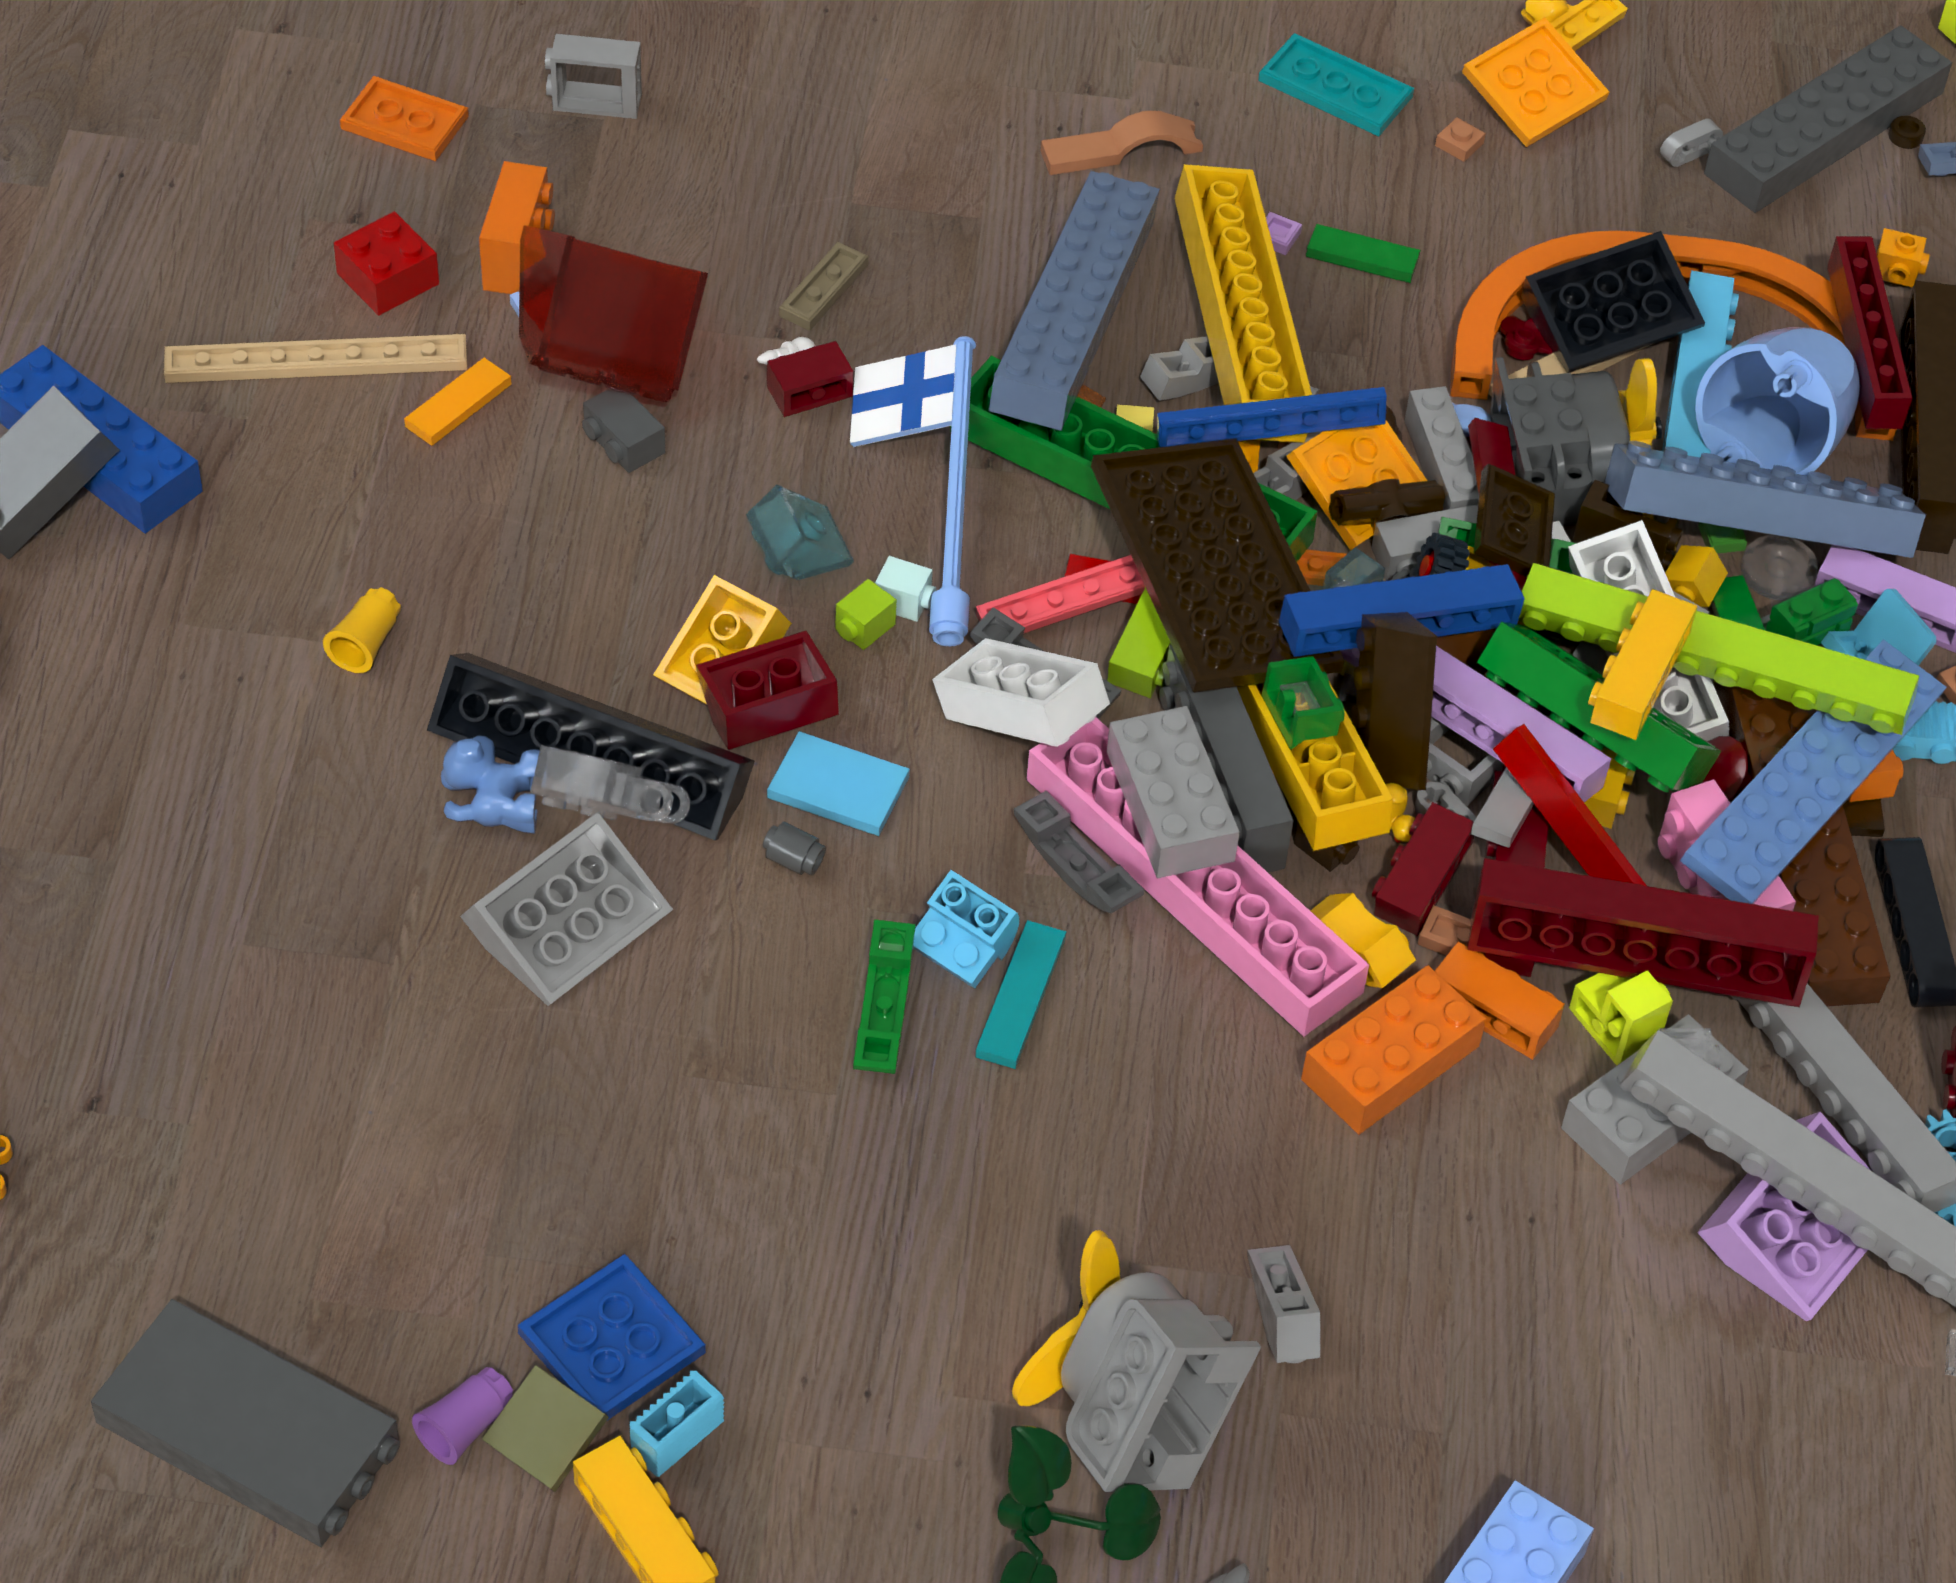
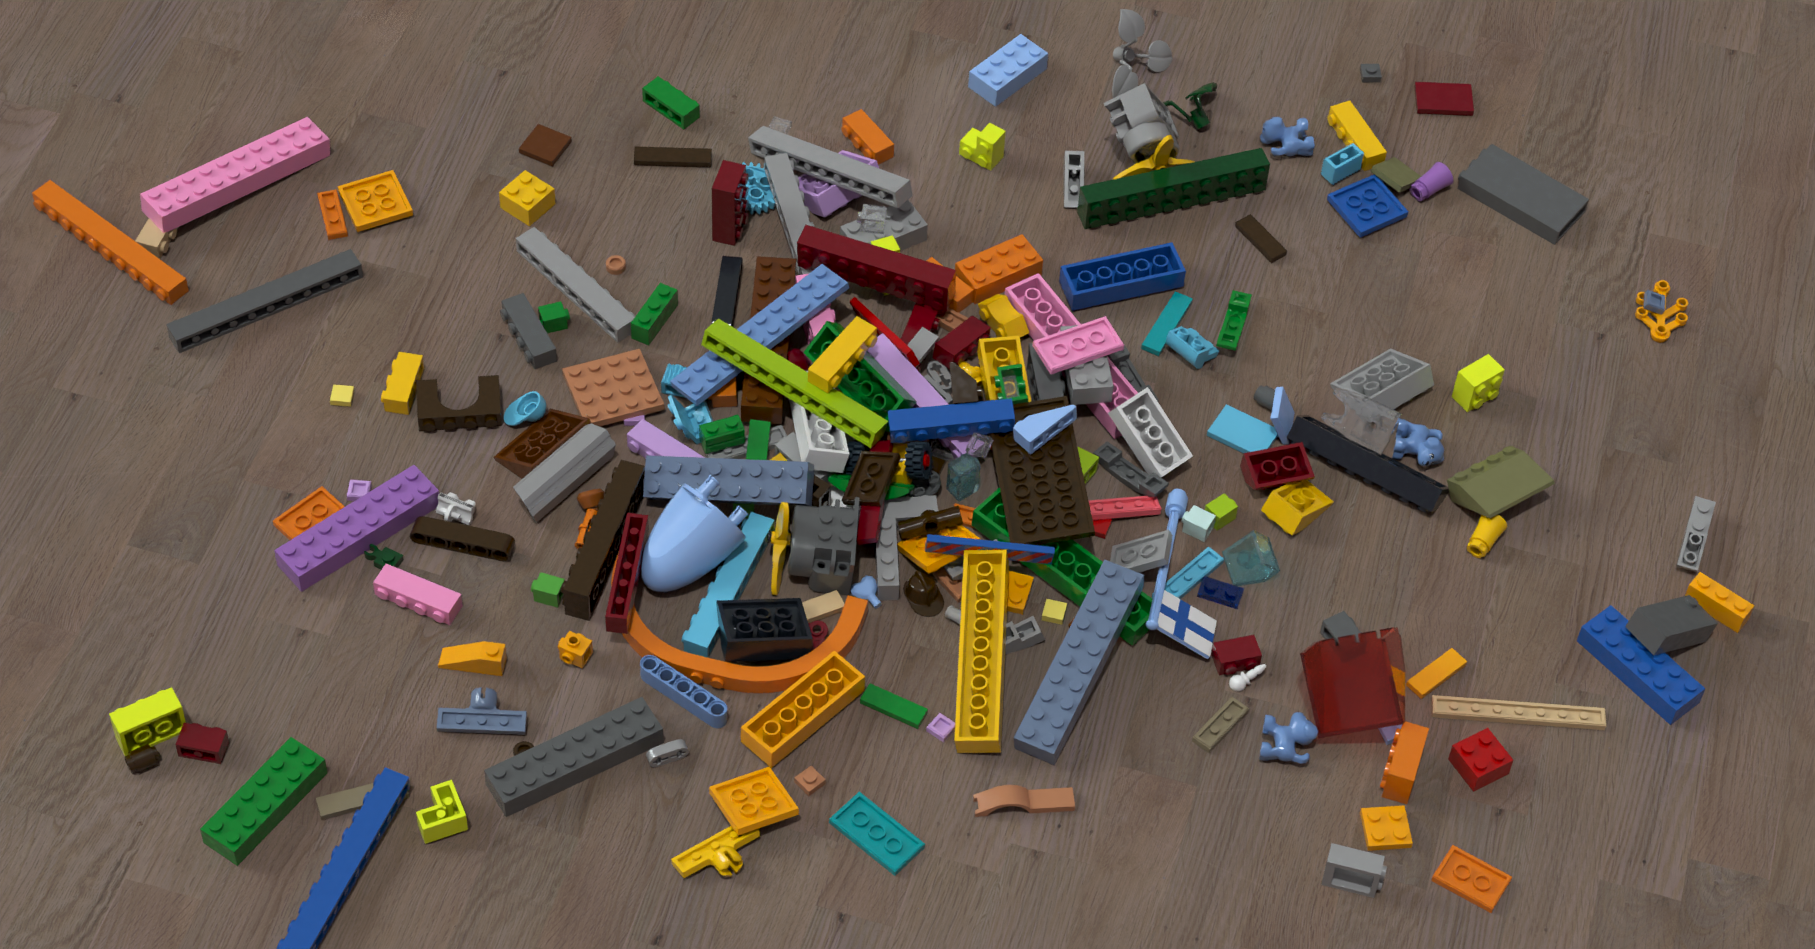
camera: 170 degrees left, 0 degrees up
(333, 700) = (1498, 482): none -> olive slope
(370, 907) = (1478, 383): none -> neon yellow brick
(557, 156) = (1386, 828): none -> light orange plate
(715, 246) = (1299, 731): none -> medium blue animal
(767, 789) = (1282, 414): none -> light blue tile
(839, 1496) = (1275, 130): none -> medium blue animal
(846, 1226) = (1261, 238): none -> dark brown tile
(848, 489) = (1220, 592): none -> clear blue plate
(904, 511) = (1193, 573): none -> medium azure tile
(1002, 491) = (1143, 552): none -> light grey plate
(1039, 1285) = (1173, 188): none -> dark green brick
(1132, 1059) = (1122, 276): none -> blue brick
(1195, 777) = (1078, 345): none -> bright pink tile
(1229, 603) = (1041, 427): none -> light blue slope
(1504, 1347) = (984, 147): none -> neon yellow brick
(1505, 207) = (802, 709): none -> light orange brick
(1678, 213) = (655, 671): none -> medium blue beam
(1767, 1343) = (867, 137): none -> orange brick

